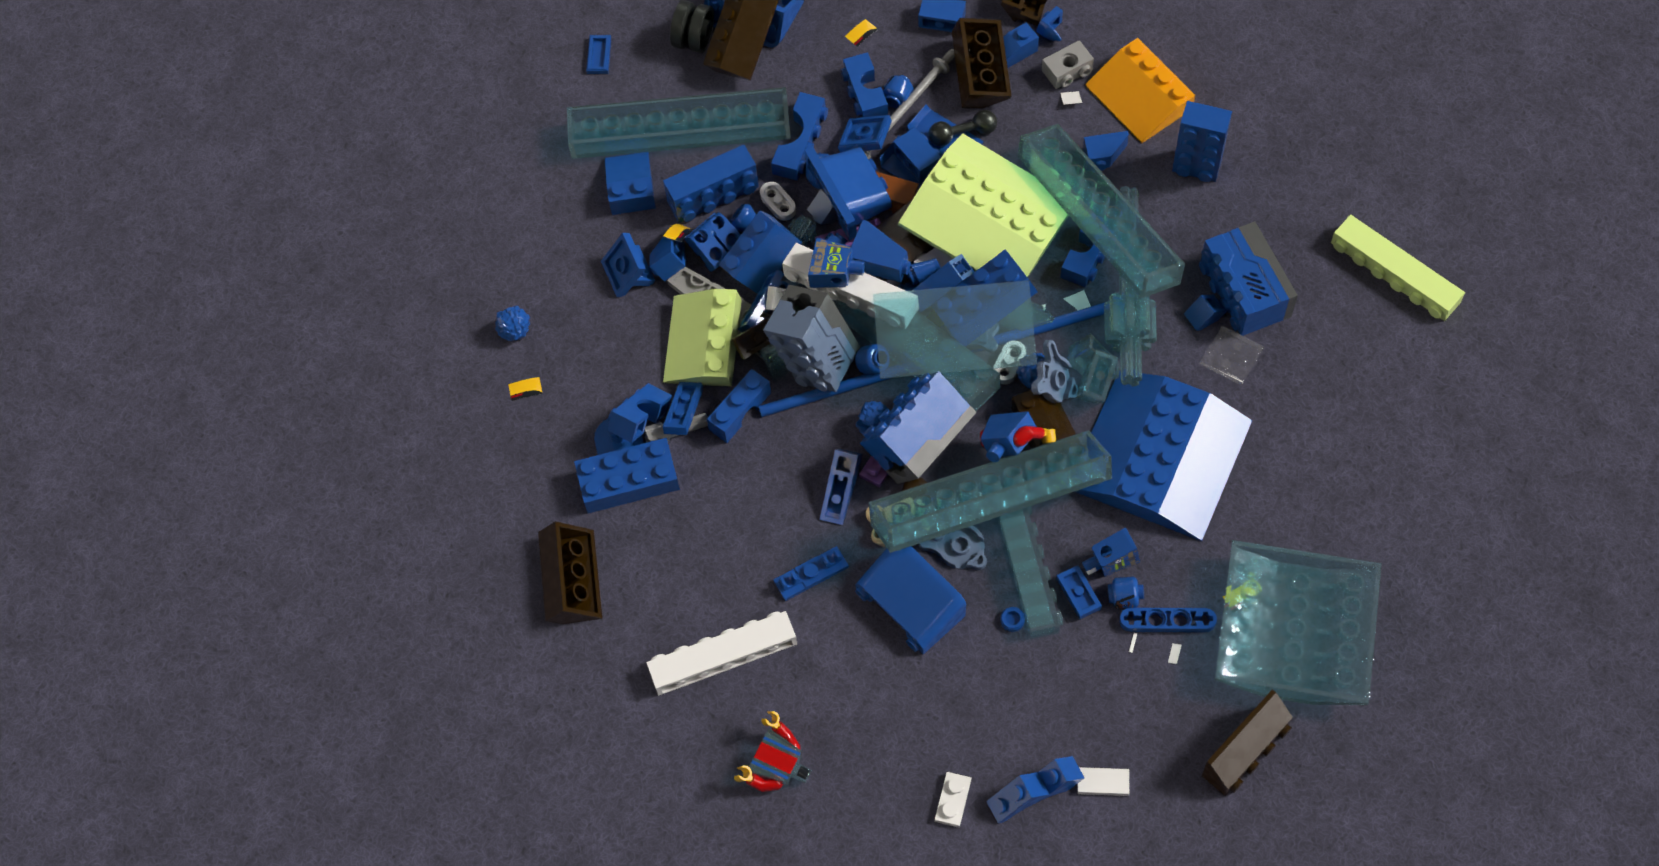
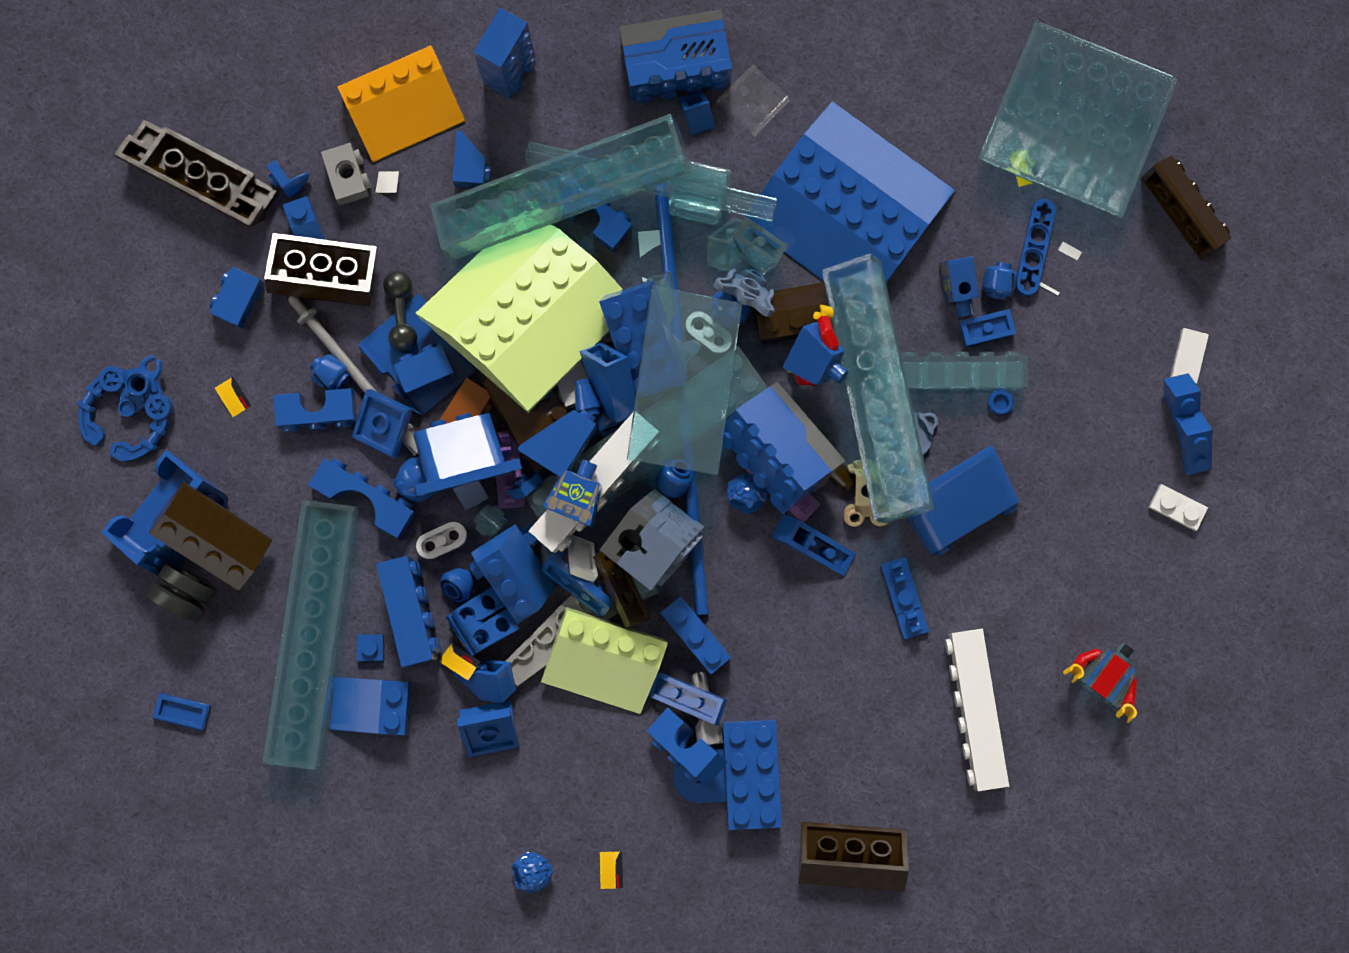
camera: 85 degrees left, 20 degrees up
(675, 167) = (370, 647): none -> blue plate

